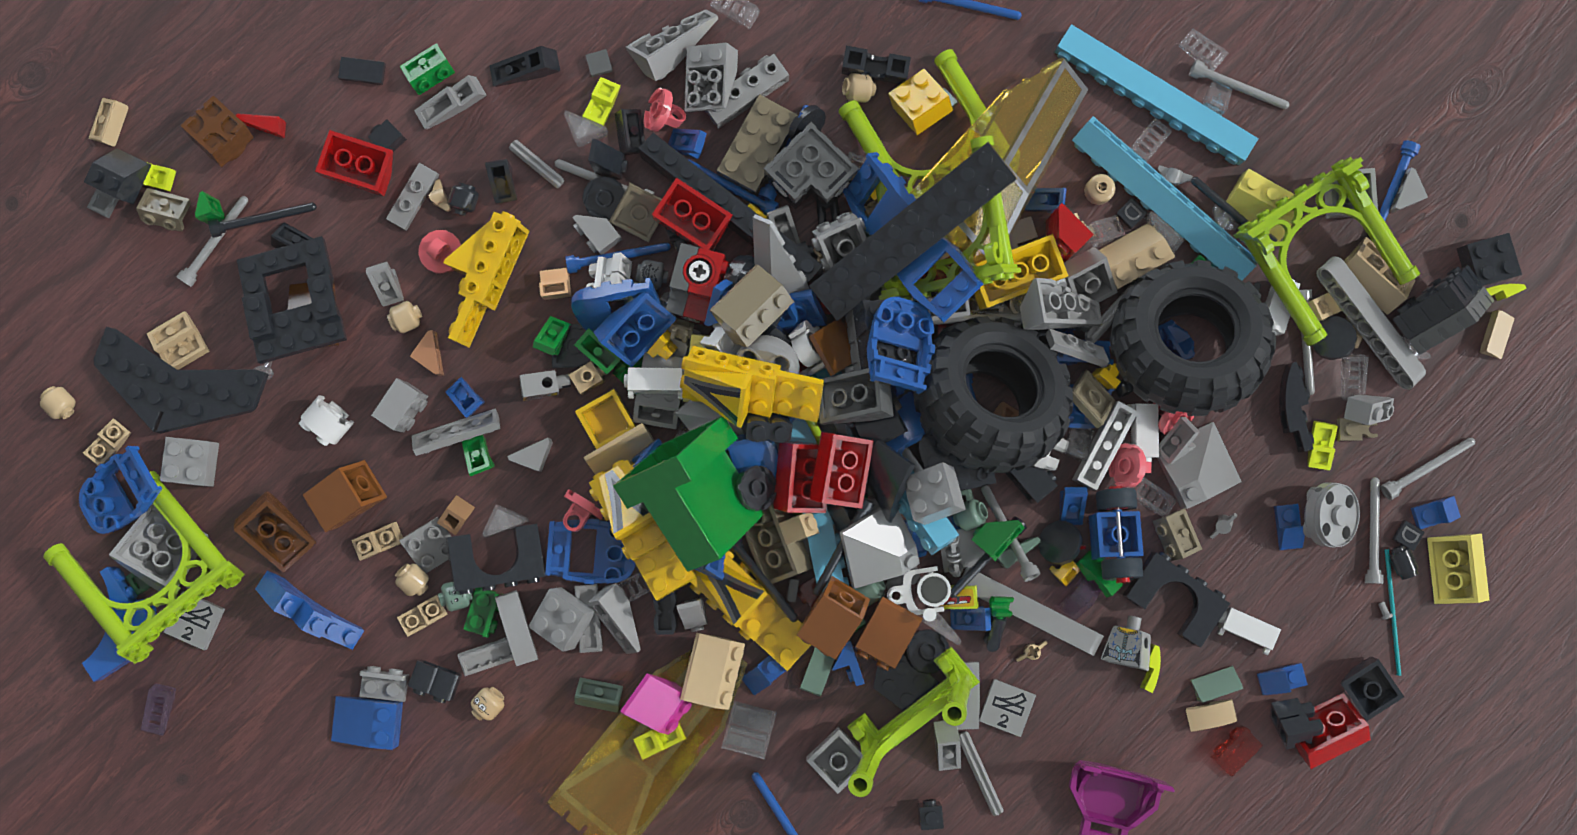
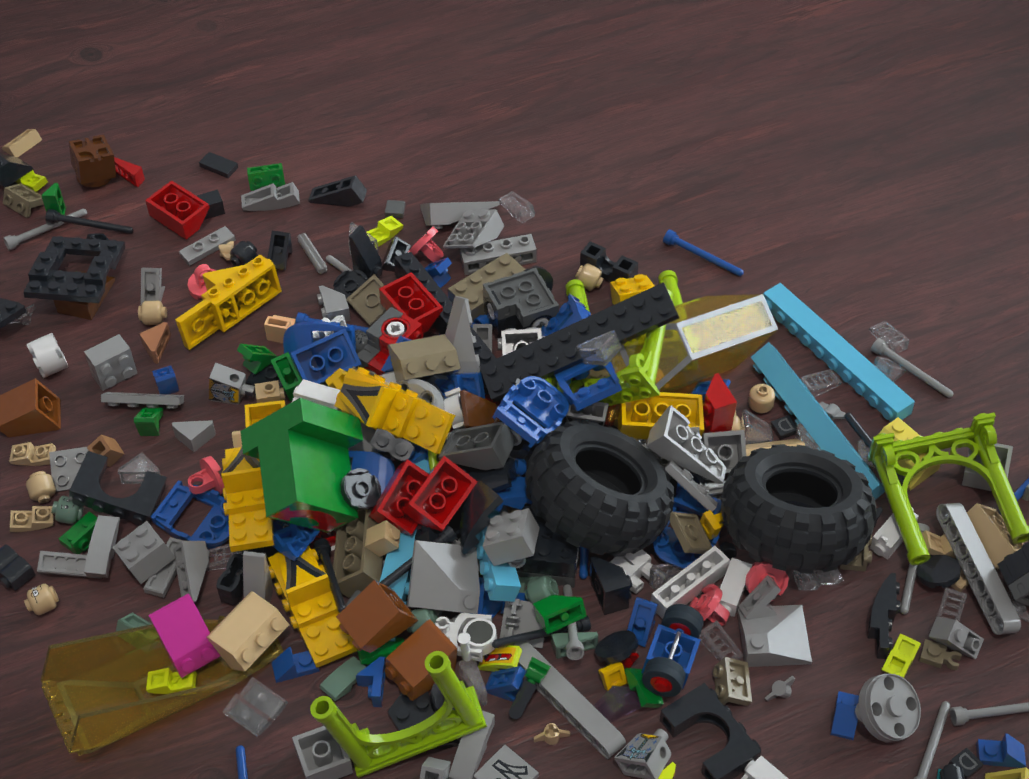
camera: 25 degrees right, 35 degrees down
(944, 242) = (600, 349): none -> clear slope

